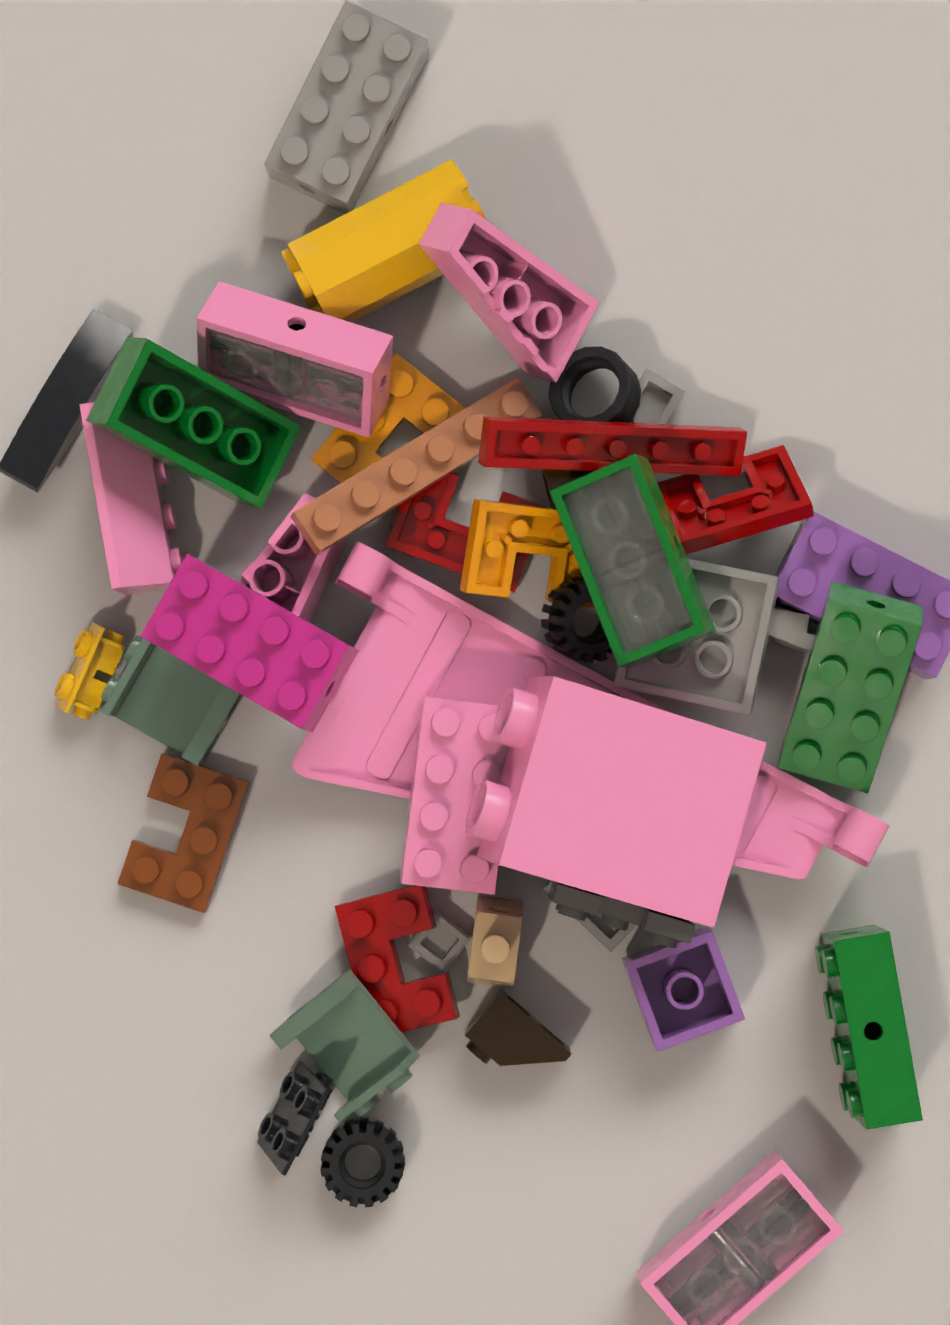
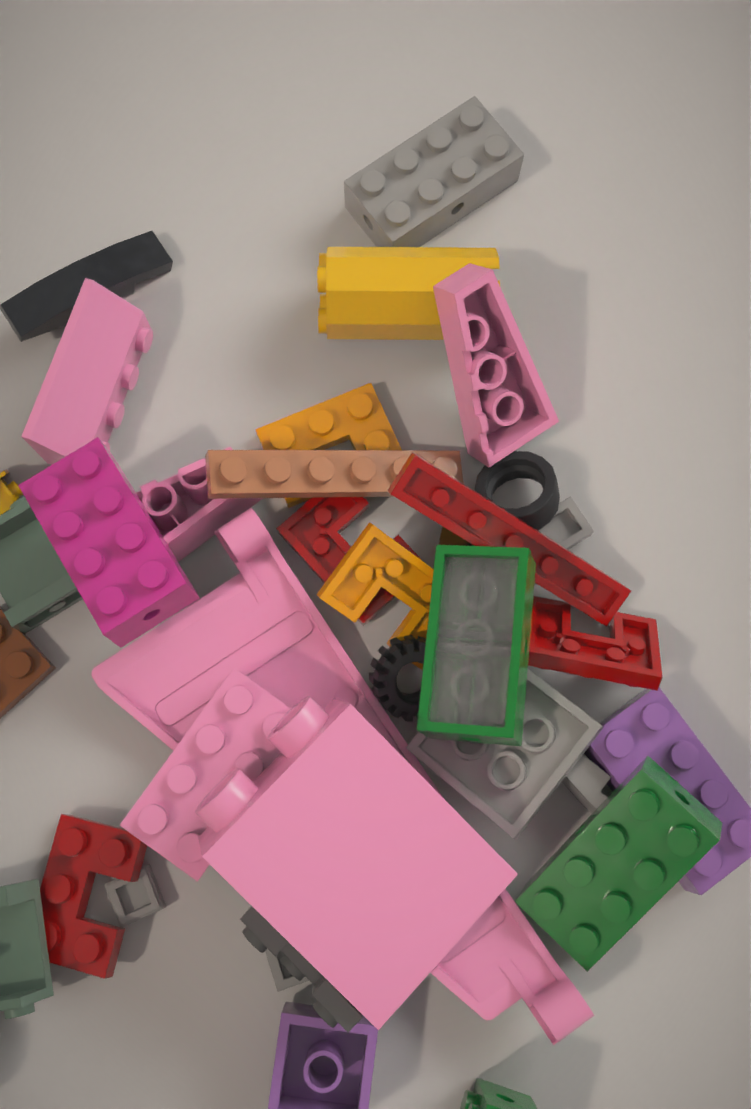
camera: 20 degrees right, 10 degrees down
(193, 422) = (171, 342): green brick -> none
(296, 358) = (283, 336): bright pink brick -> none
(495, 941) = (178, 924): tan torso -> none
(512, 1035) = (149, 1023): dark brown slope -> none

